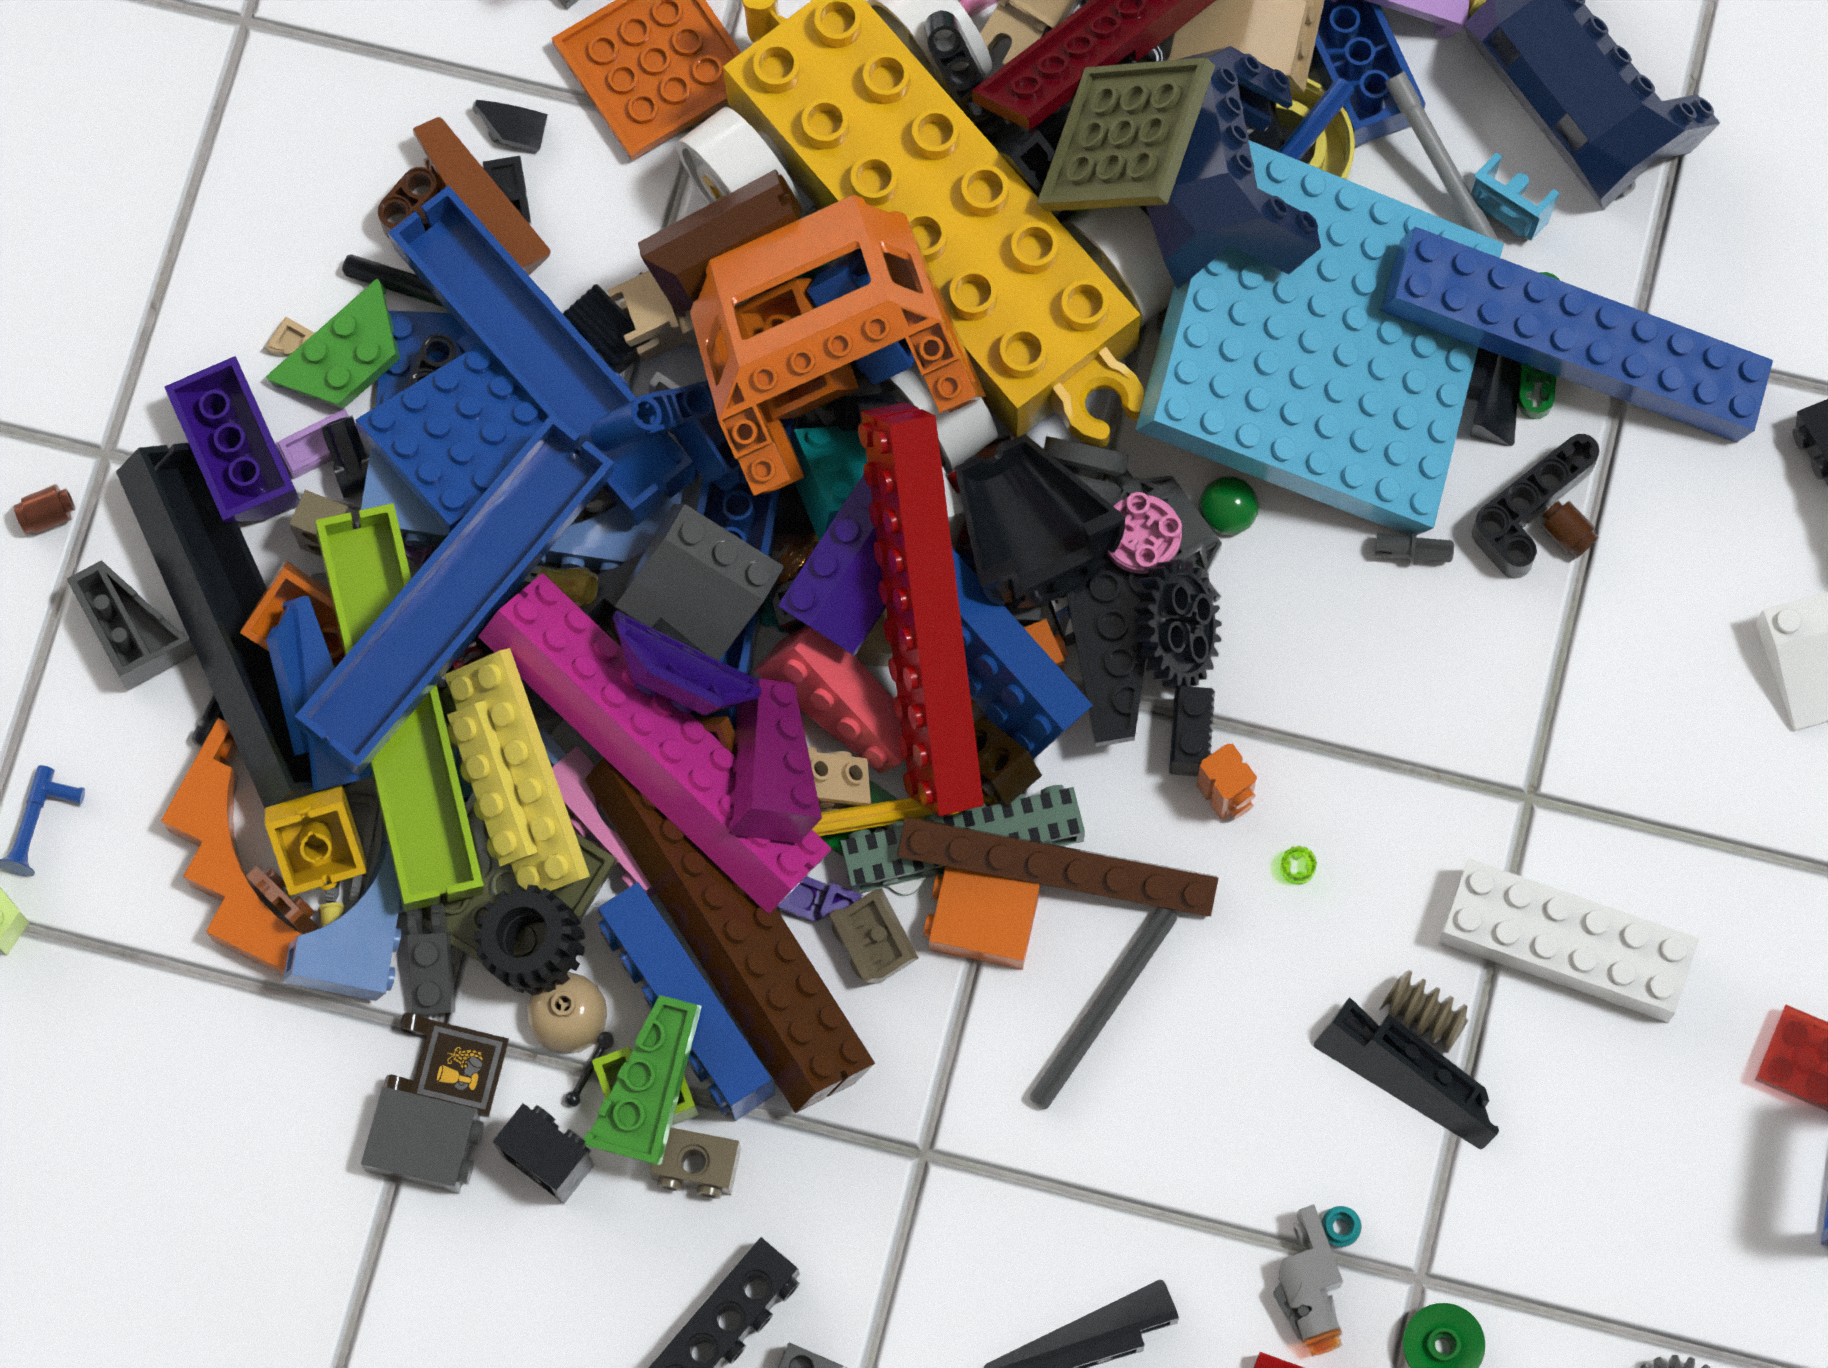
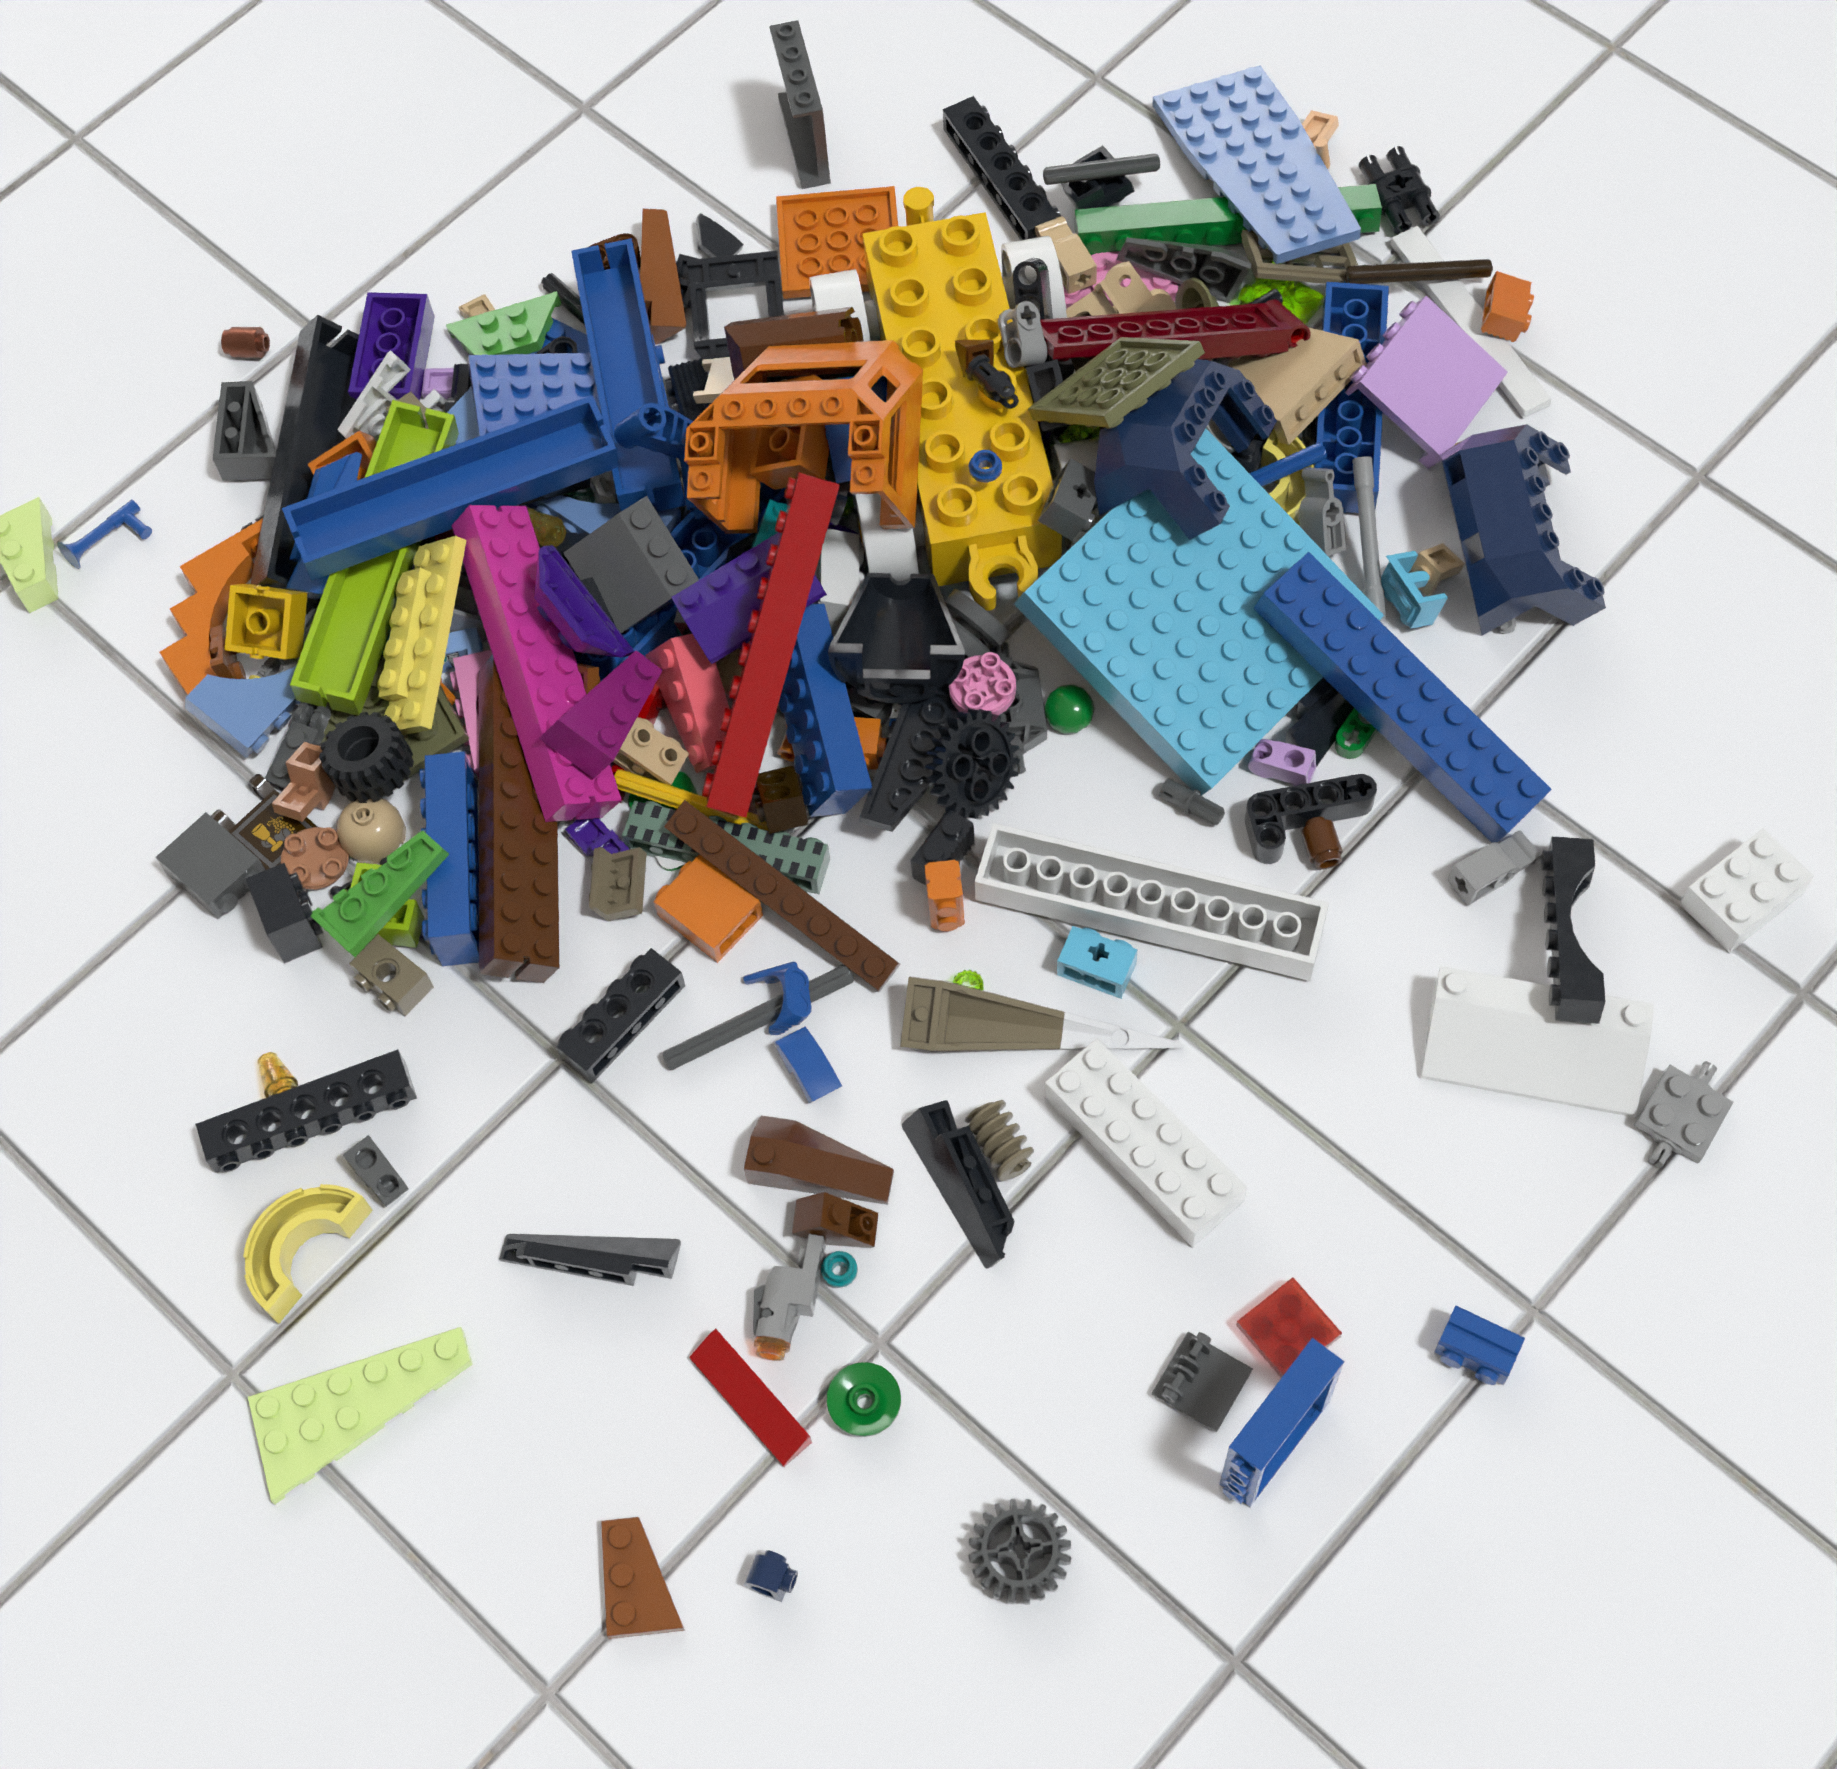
camera: 30 degrees right, 10 degrees down
(276, 538) = (369, 409): none -> white wing
(471, 998) = (308, 786): none -> nougat brick
(525, 1073) = (315, 857): none -> nougat dish
(569, 158) = (725, 274): none -> black wedge
(644, 1332) = (275, 1075): none -> clear yellow cone
(942, 165) = (969, 349): none -> reddish brown slope
(959, 1142) = (618, 1033): none -> black brick
(984, 119) = (1022, 339): none -> light grey piece
(989, 192) = (994, 382): none -> black piece
(1034, 285) = (982, 459): none -> blue plate
(1129, 956) = (796, 994): none -> blue helmet
(1141, 287) = (1071, 501): none -> dark grey brick
(1188, 1031) = (808, 1063): none -> blue slope
(1243, 1131) = (804, 1160): none -> reddish brown wedge
(1310, 1181) = (836, 1220): none -> reddish brown slope
(1324, 899) = (960, 1017): none -> dark tan plate
(1379, 156) = (1321, 512): none -> light grey piece
(1397, 783) = (1107, 975): none -> medium azure brick
(1436, 681) = (1151, 901): none -> white brick
(1484, 459) = (1283, 762): none -> lavender leg
(1520, 153) = (1439, 564): none -> tan bracket
(1752, 469) = (1492, 867): none -> light grey piece
(1752, 1152) = (1202, 1381): none -> dark grey hinge

